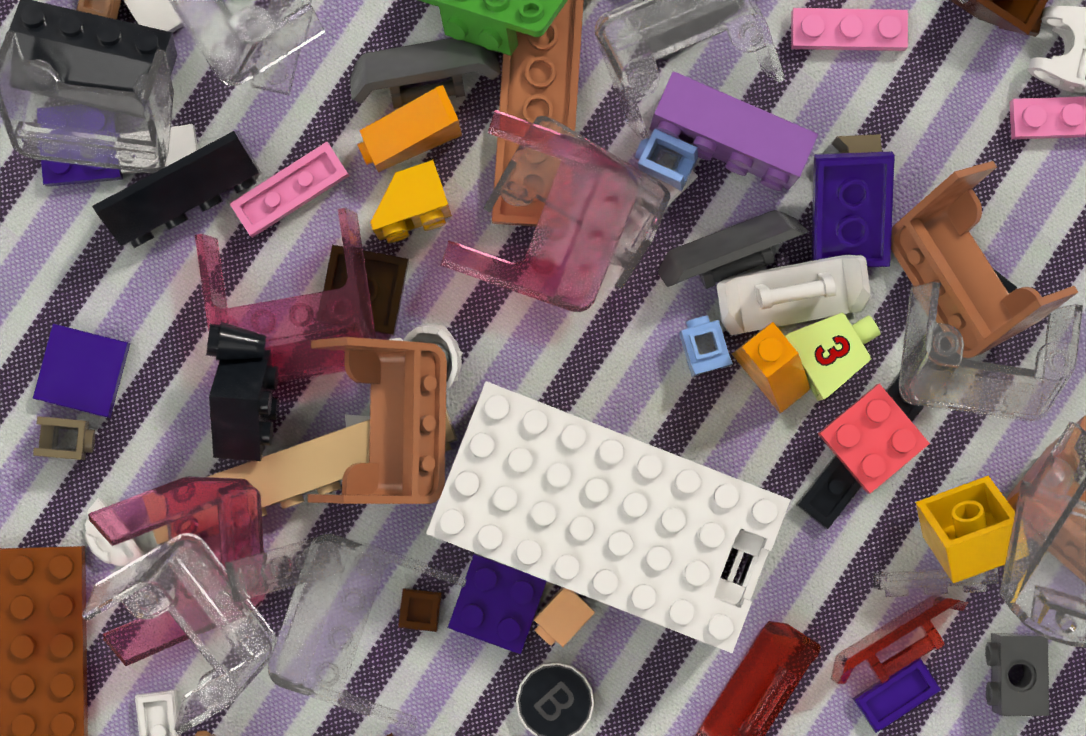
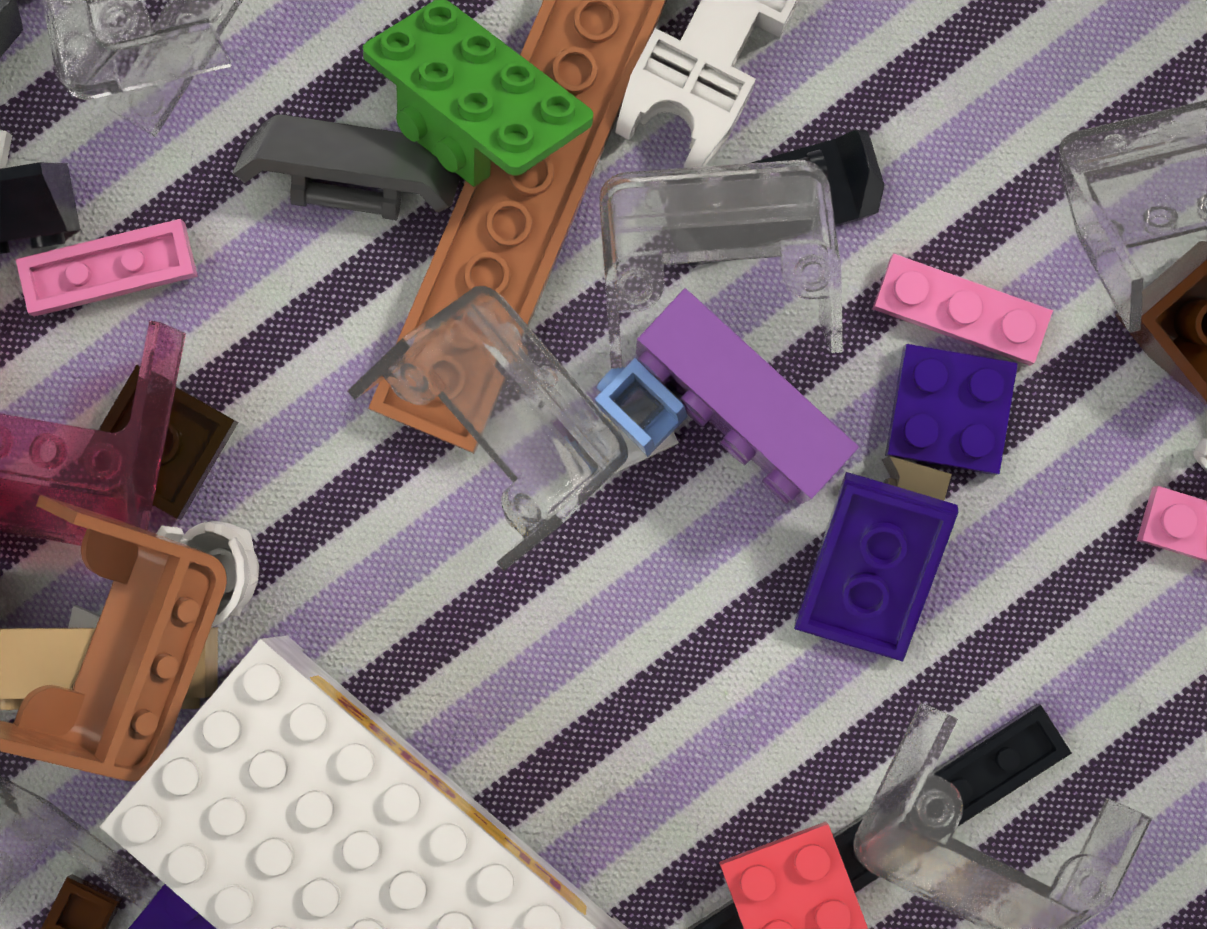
camera: 25 degrees right, 0 degrees up
(410, 130) = (299, 243): light orange slope -> none
(411, 201) = (262, 341): yellow slope -> none
(575, 229) = (476, 458): clear pink windscreen -> none
(704, 346) = (603, 685): light blue window -> none
(730, 250) = (687, 561): dark grey piece -> none
(774, 367) = (687, 749): light orange slope -> none
(794, 293) = (753, 653): white piece -> none
(833, 351) = (778, 753): yellowish green torso -> none
(864, 95) = (951, 409): none -> dark purple plate
(937, 247) = (983, 673): nougat windscreen -> none

